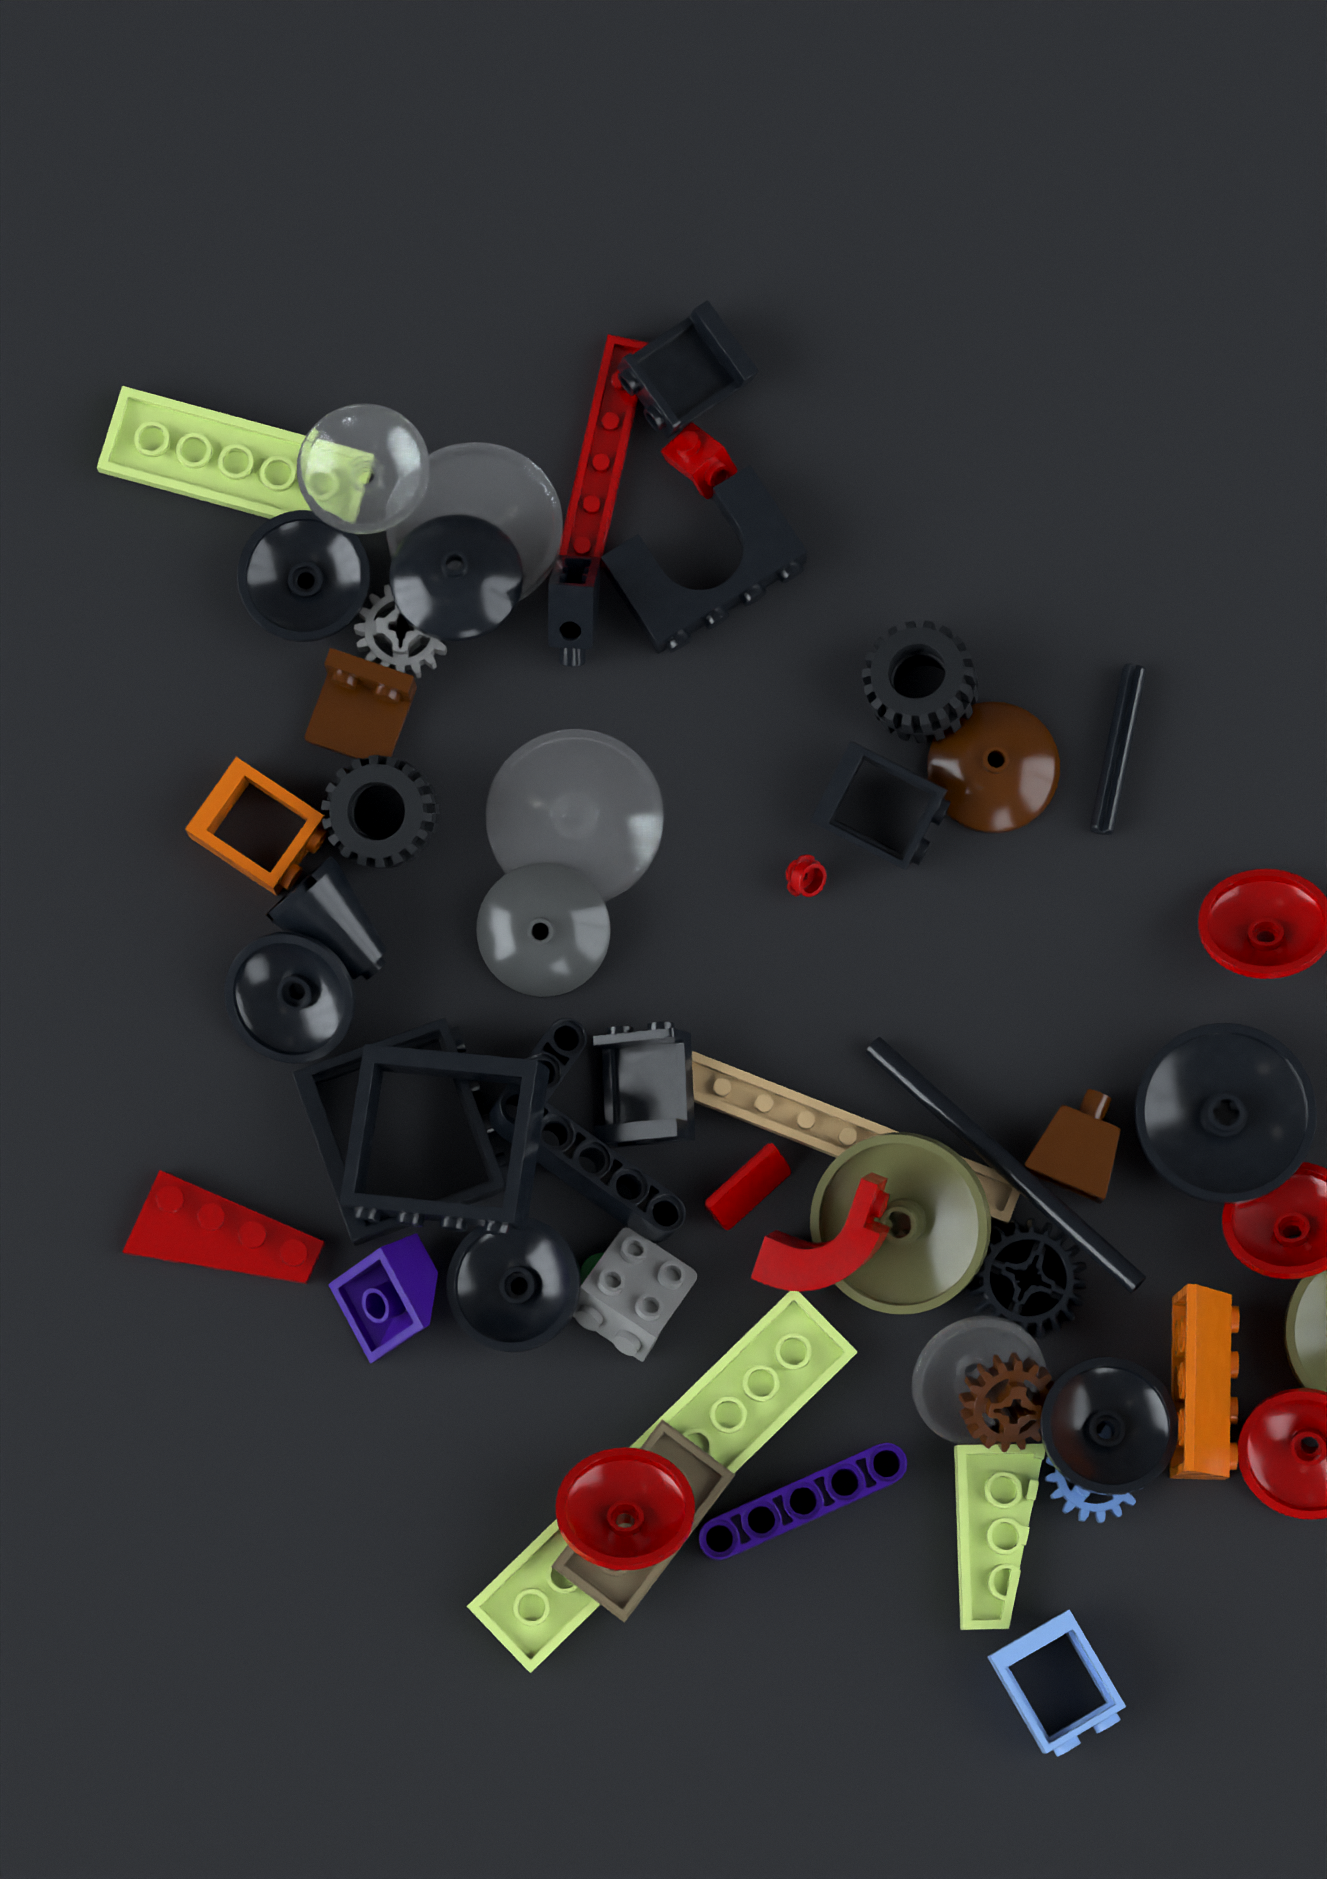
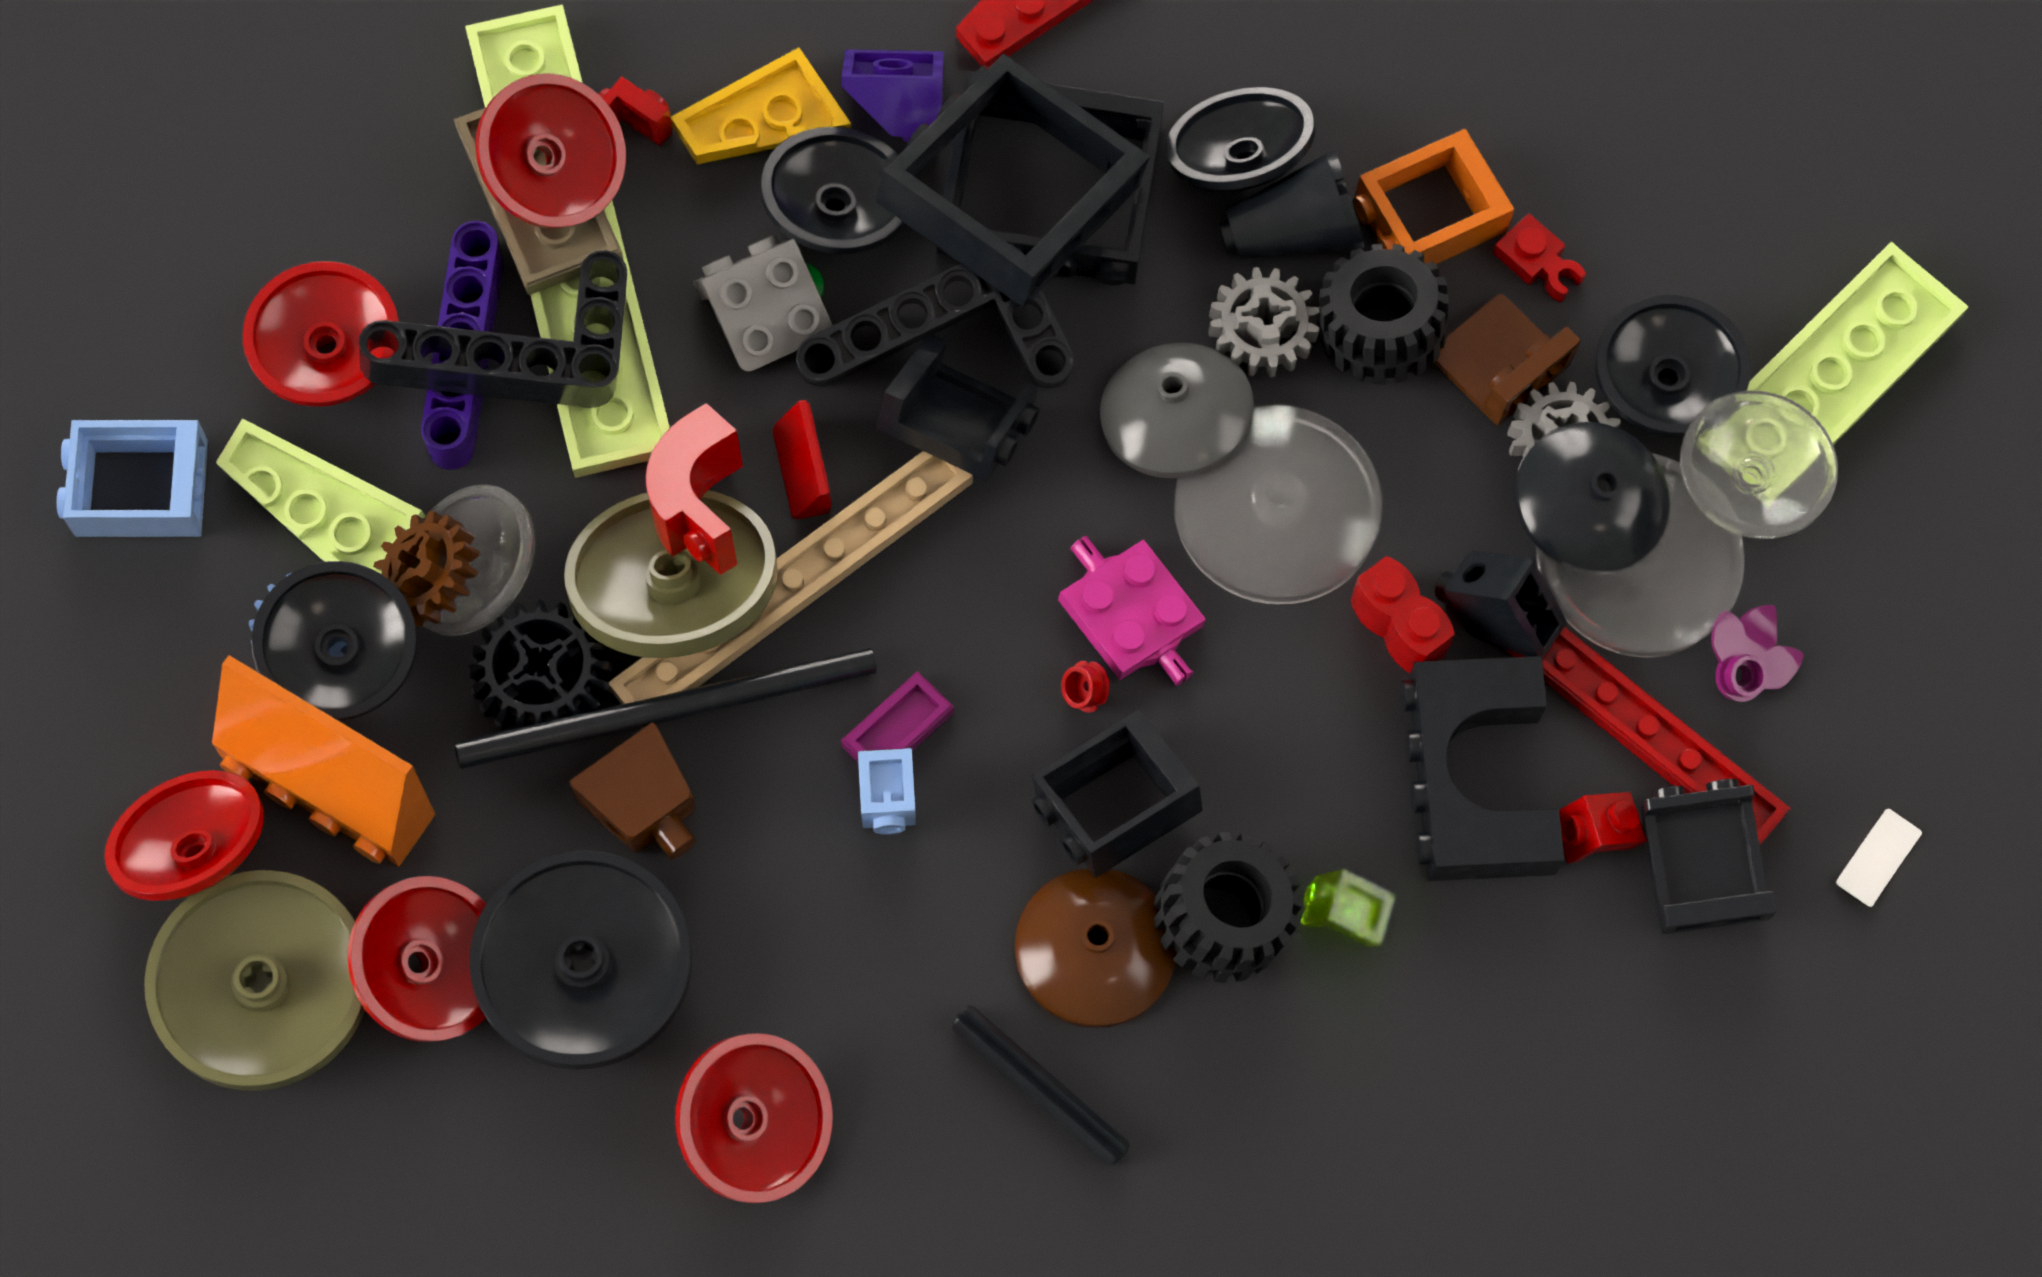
camera: 115 degrees right, 10 degrees down
(251, 734) = (1536, 252): none -> red plate
(448, 889) = (1282, 311): none -> light grey gear
(466, 1391) = (759, 111): none -> yellow wing
(503, 414) = (1753, 648): none -> magenta plate
(521, 1484) = (641, 110): none -> red bracket
(606, 259) = (1878, 857): none -> white sticker
(615, 683) = (1392, 608): none -> red brick
(723, 878) = (1131, 610): none -> dark pink plate
(803, 1435) = (513, 352): none -> black beam
(864, 604) = (1348, 906): none -> clear neon green bracket
(897, 1604) = (301, 314): none -> red dish
(912, 998) = (901, 719): none -> magenta tile
(971, 971) = (887, 790): none -> light blue bracket

